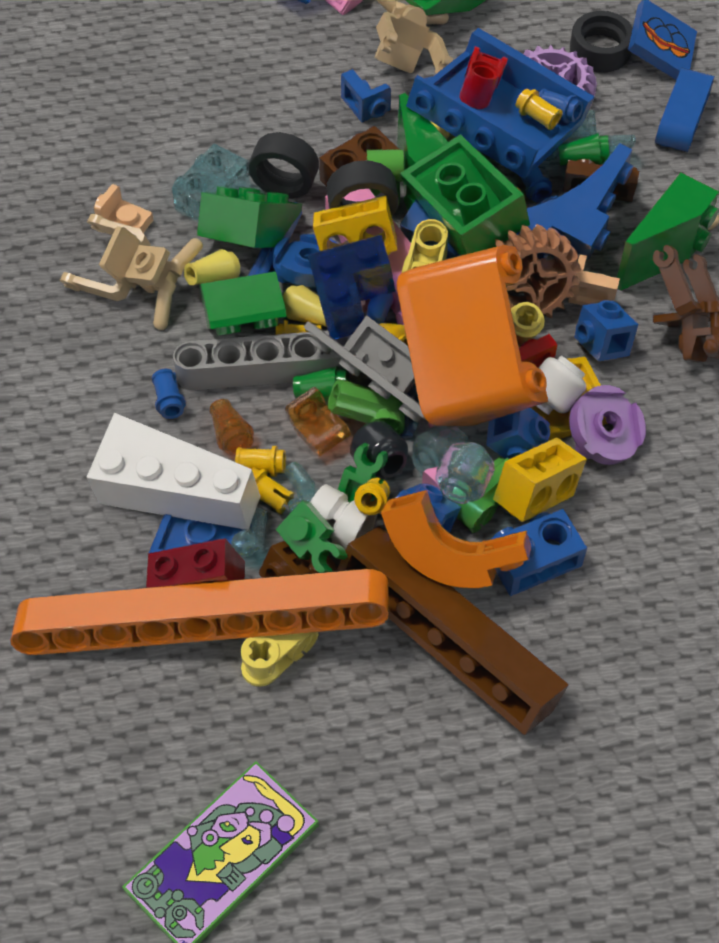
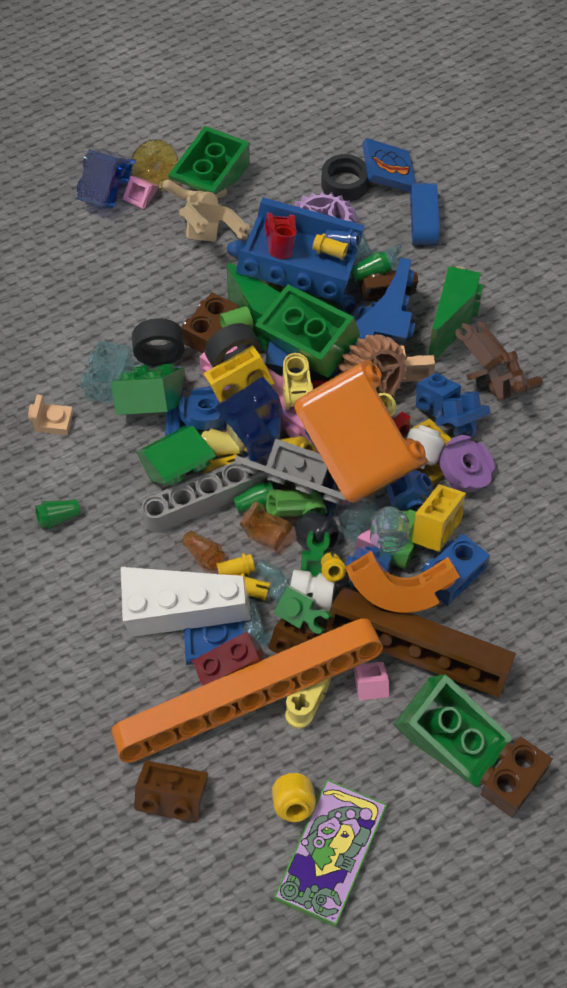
camera: 20 degrees left, 0 degrees up
(55, 705) = (170, 791): none -> reddish brown bracket
(74, 327) = (56, 512): none -> green cone
(135, 263) = (82, 450): tan piece -> none
(169, 400) = (150, 545): blue pin -> none
(201, 768) = (293, 797): none -> yellow head
(214, 267) = (141, 434): light yellow cone -> none
(363, 100) = (190, 273): blue bracket -> none
(369, 657) = (371, 681): none -> bright pink slope
(447, 756) = (453, 729): none -> green slope
(510, 854) = (518, 778): none -> reddish brown brick
(628, 367) = (462, 413): none -> blue hips

